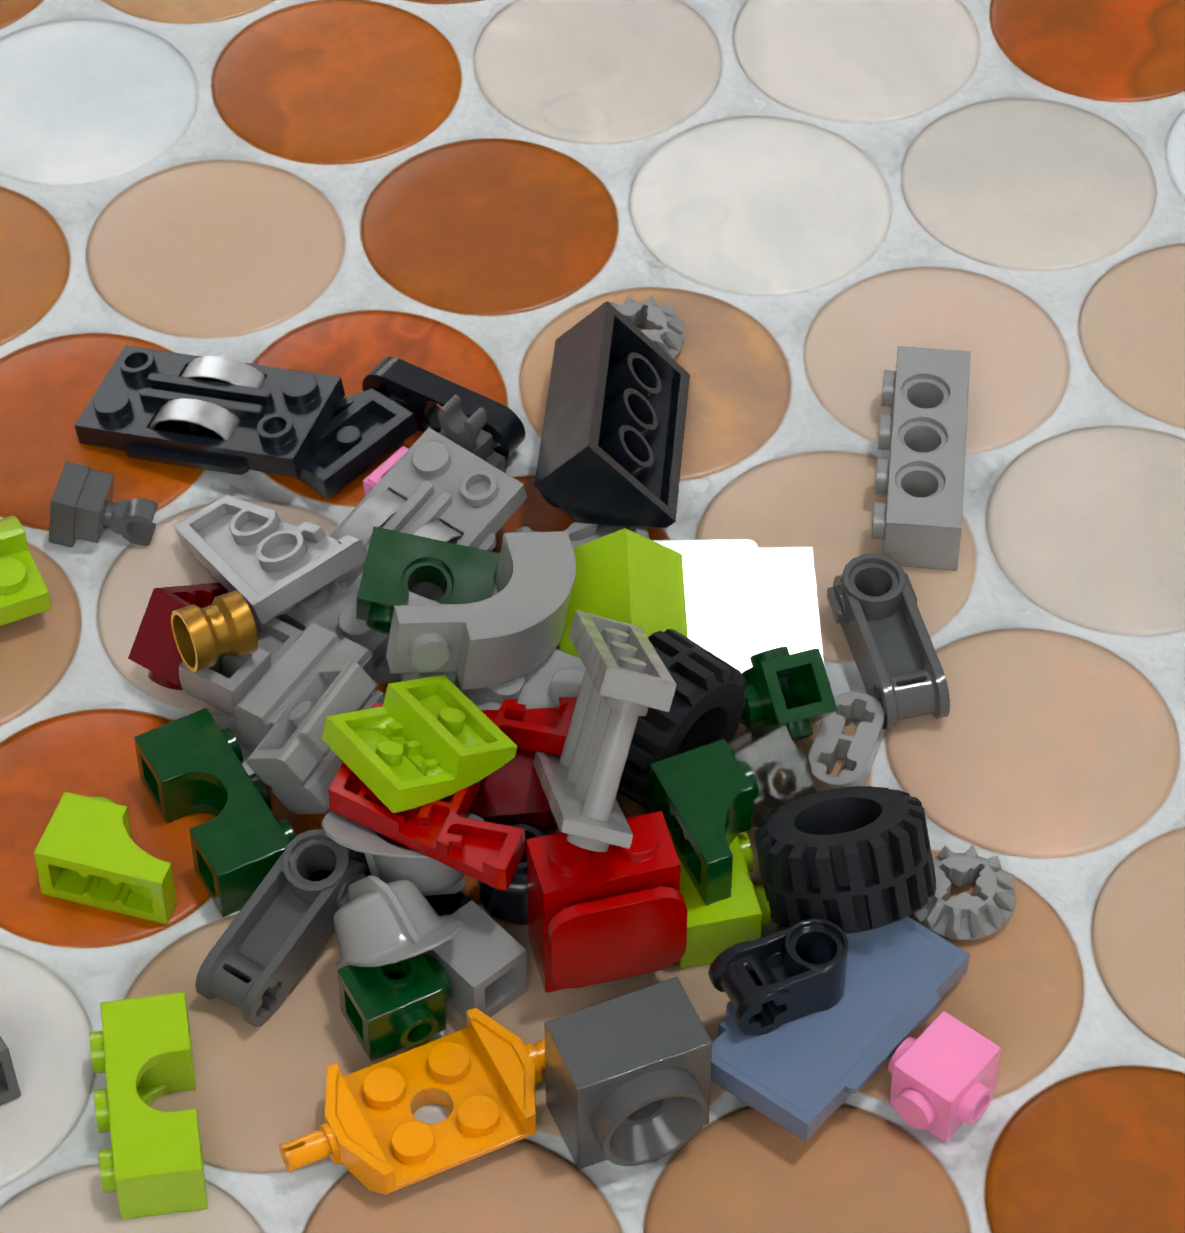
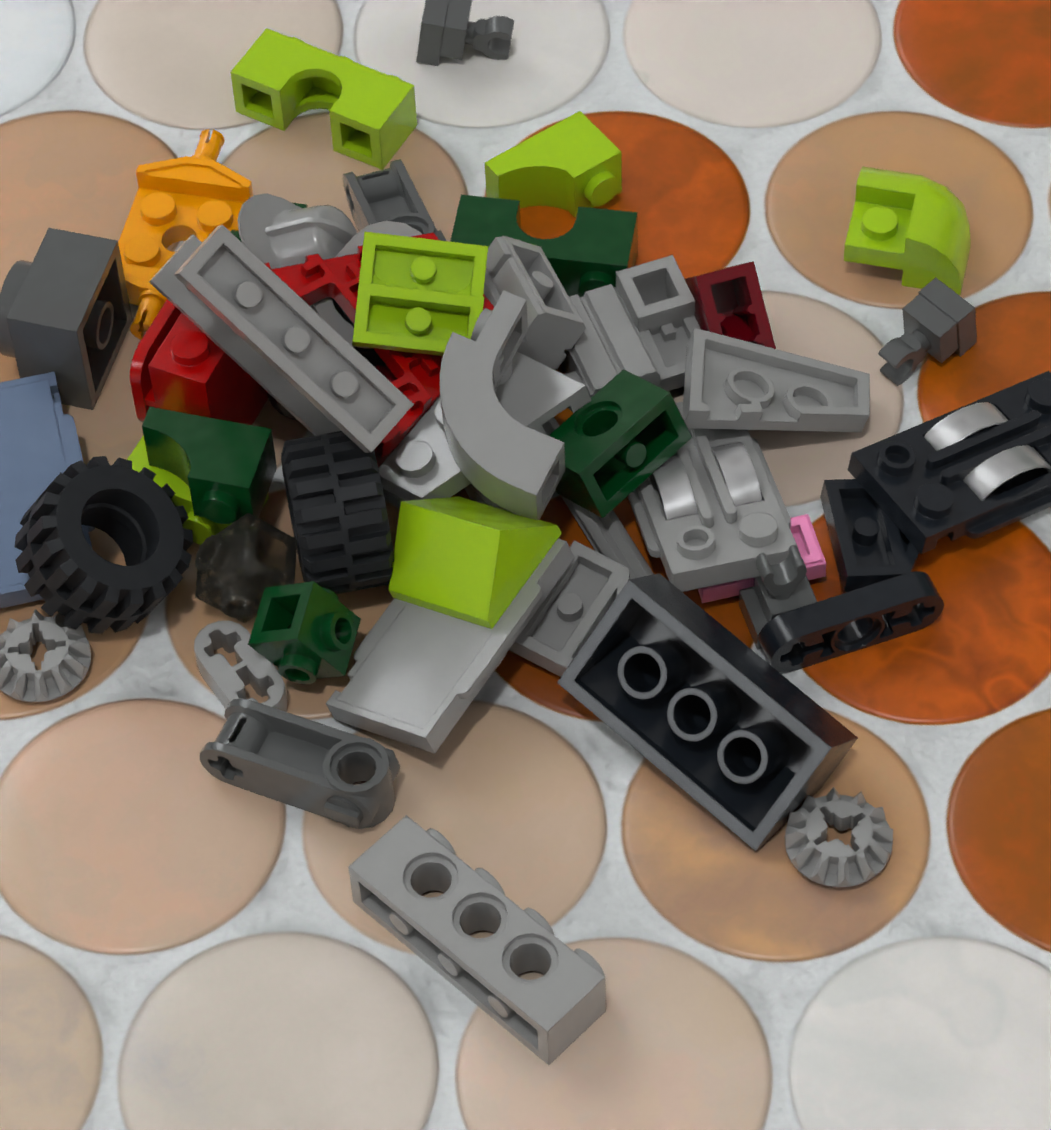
camera: 130 degrees right, 5 degrees up
(214, 631) = (667, 263): pearl gold wheel -> none
(785, 975) = (43, 437): black piece -> none

